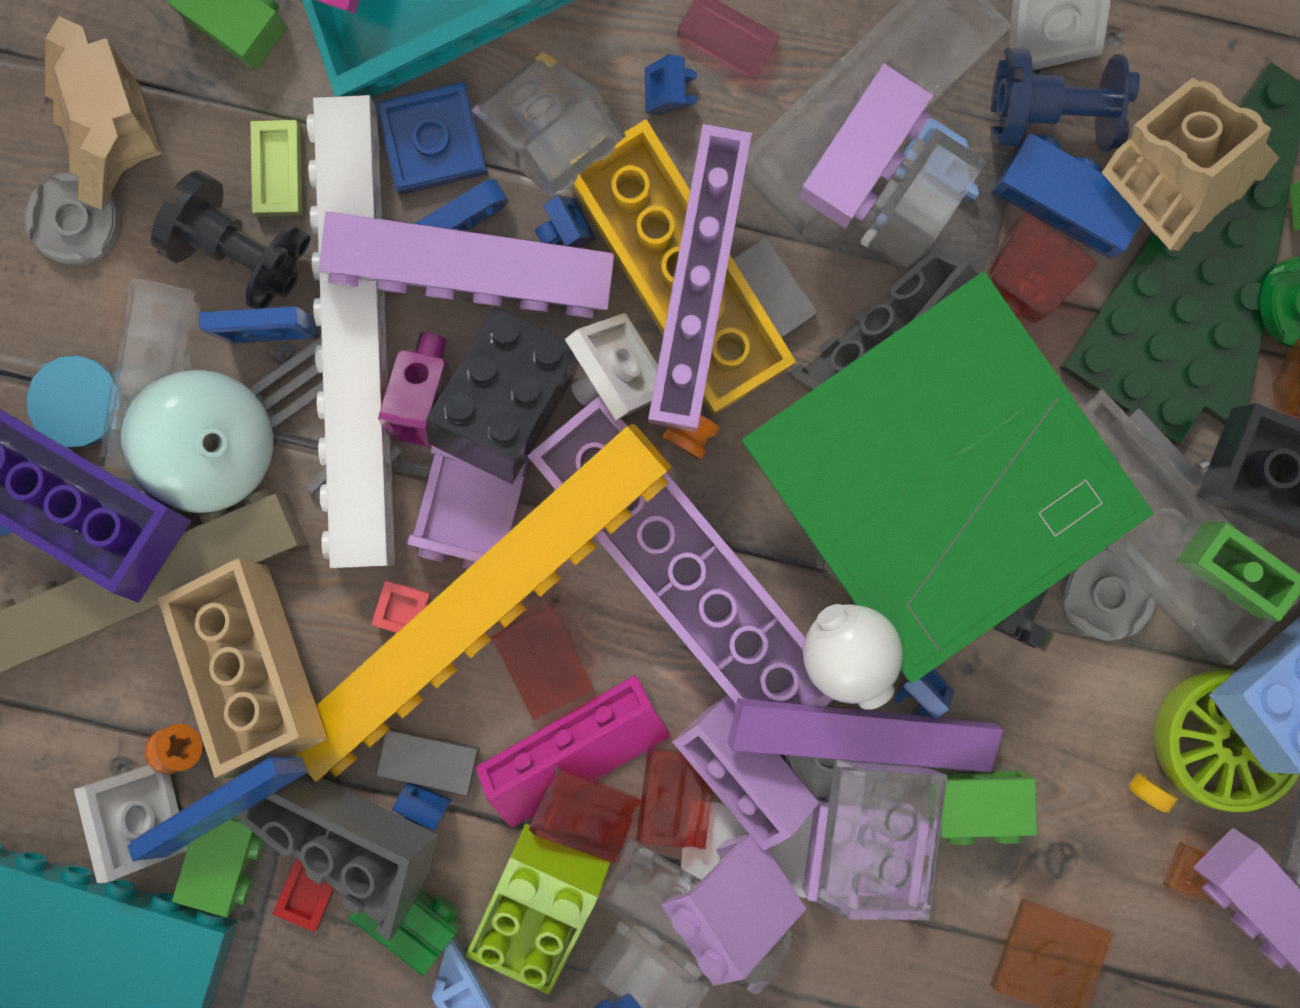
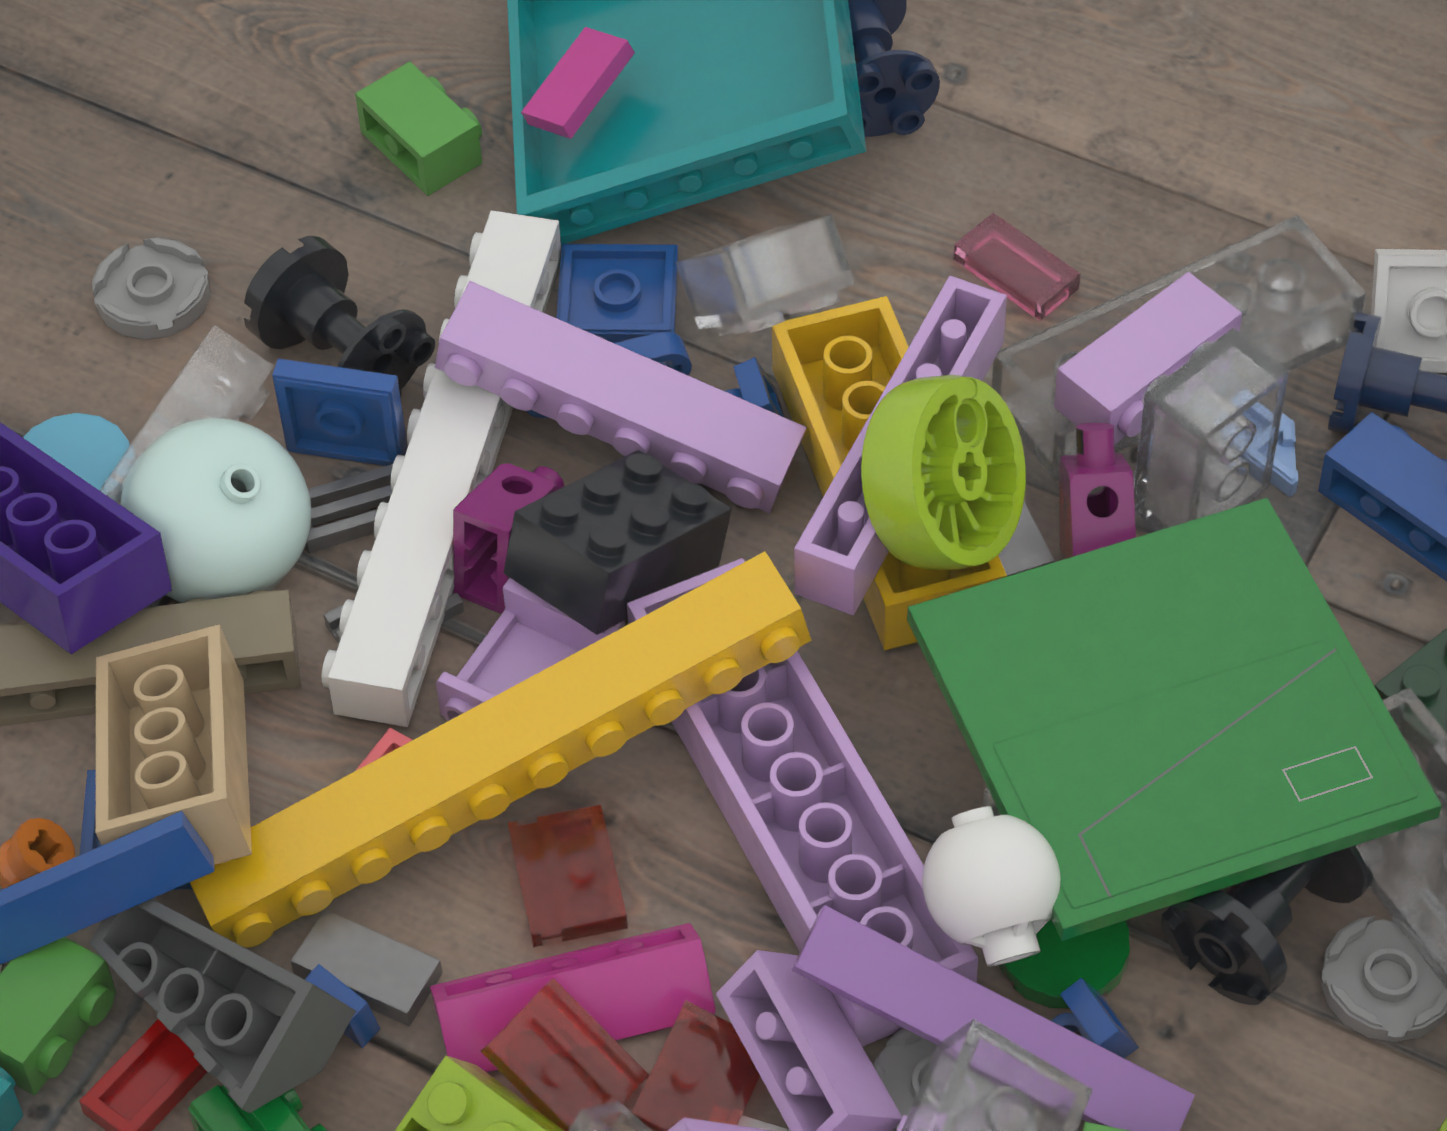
camera: 15 degrees right, 35 degrees down
(97, 109) = (229, 174): tan slope -> none
(276, 168) = (420, 277): yellowish green tile -> none
(614, 365) = (769, 526): white tile -> none
(666, 85) = (921, 288): blue tile -> none
(692, 442) = (849, 653): orange wheel -> none
(743, 321) = (943, 472): none -> lime piece
(839, 264) = (1101, 517): none -> magenta torso
(1037, 268) = (1364, 567): clear red torso -> none

